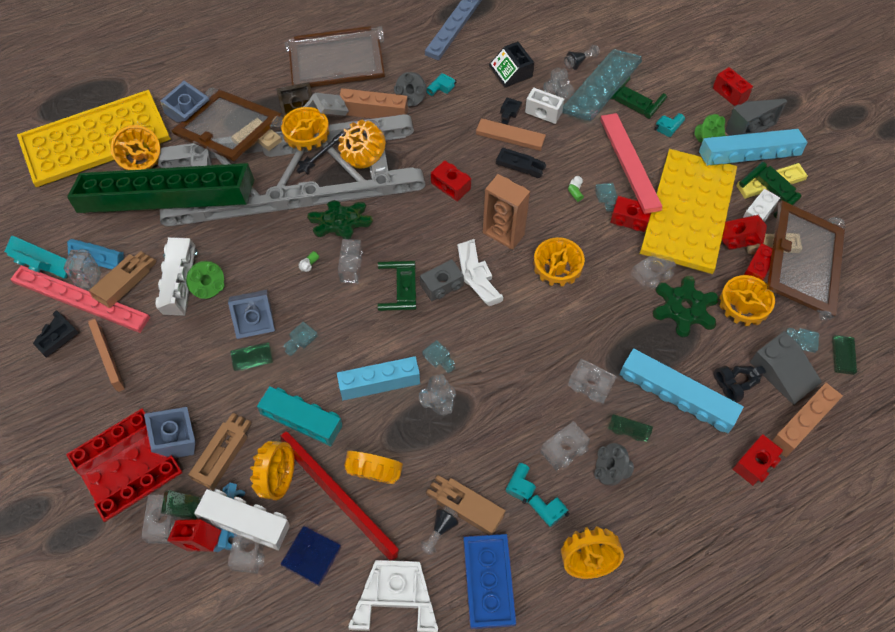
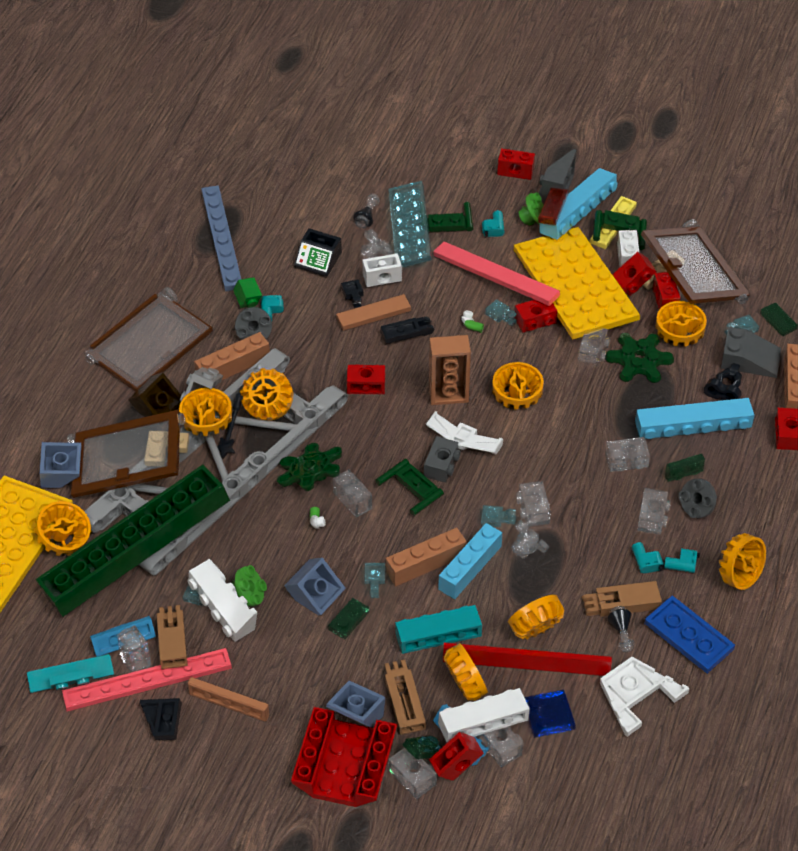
camera: 40 degrees left, 10 degrees down
(348, 349) = (424, 557): none -> nougat brick
(432, 63) = (247, 292): none -> green brick
(473, 378) = (534, 503): none -> clear brick
(724, 135) = (553, 206): none -> clear red tile

